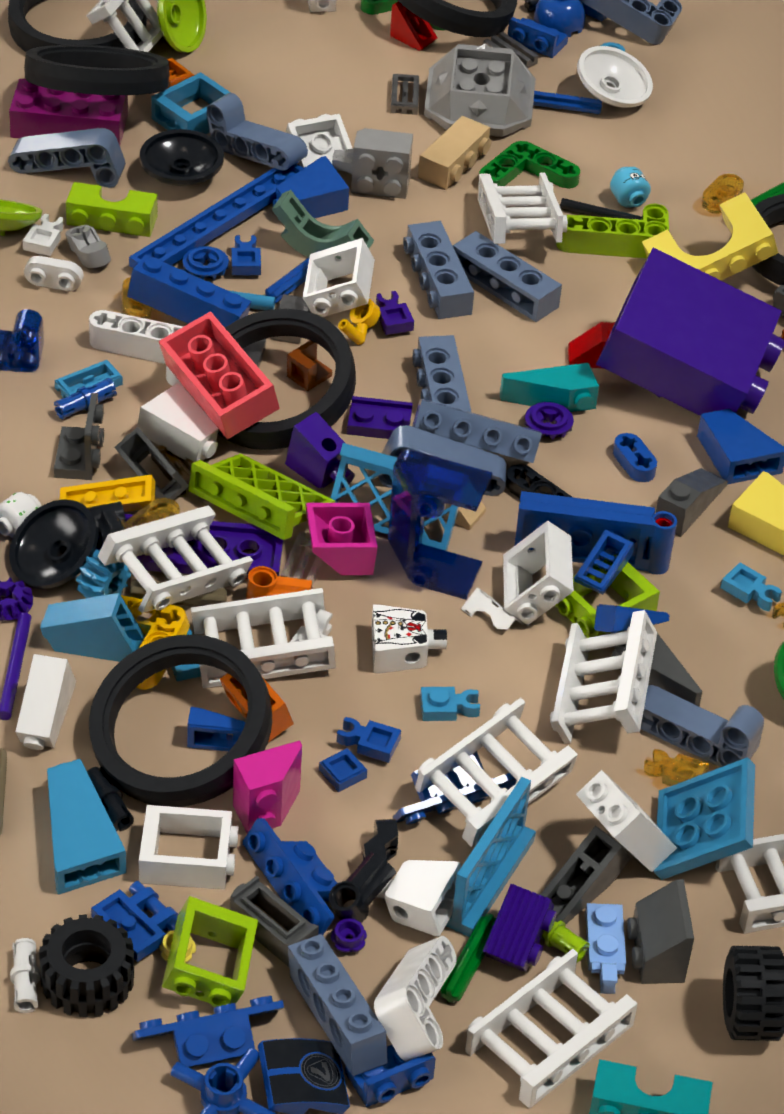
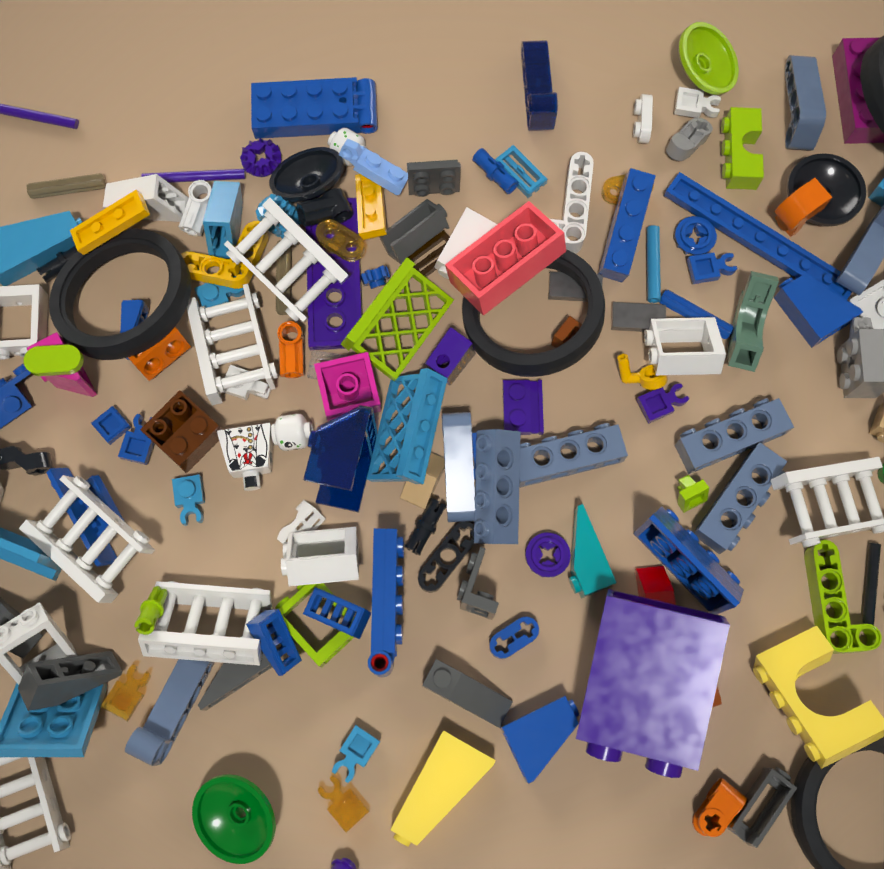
camera: 85 degrees right, 30 degrees up
(63, 482) = (374, 167): none -> light blue hinge
(83, 662) = (195, 208): none -> white piece
(86, 711) = (109, 222): none -> yellow plate
(204, 172) = (801, 206): none -> orange brick
(205, 493) = (375, 277): none -> blue plate
(275, 757) = (53, 360): none -> lime tile
(373, 685) = (182, 431): none -> reddish brown slope
(382, 590) = (291, 432): none -> white head
(495, 307) = (691, 493): none -> lime tile
(503, 505) = (425, 526): none -> black pin
(570, 307) = (690, 562): none -> blue slope
(580, 463) = (479, 604): none -> dark grey bracket
(590, 708) = (151, 611): none -> lime axle
(664, 803) = (61, 679): none -> dark grey slope

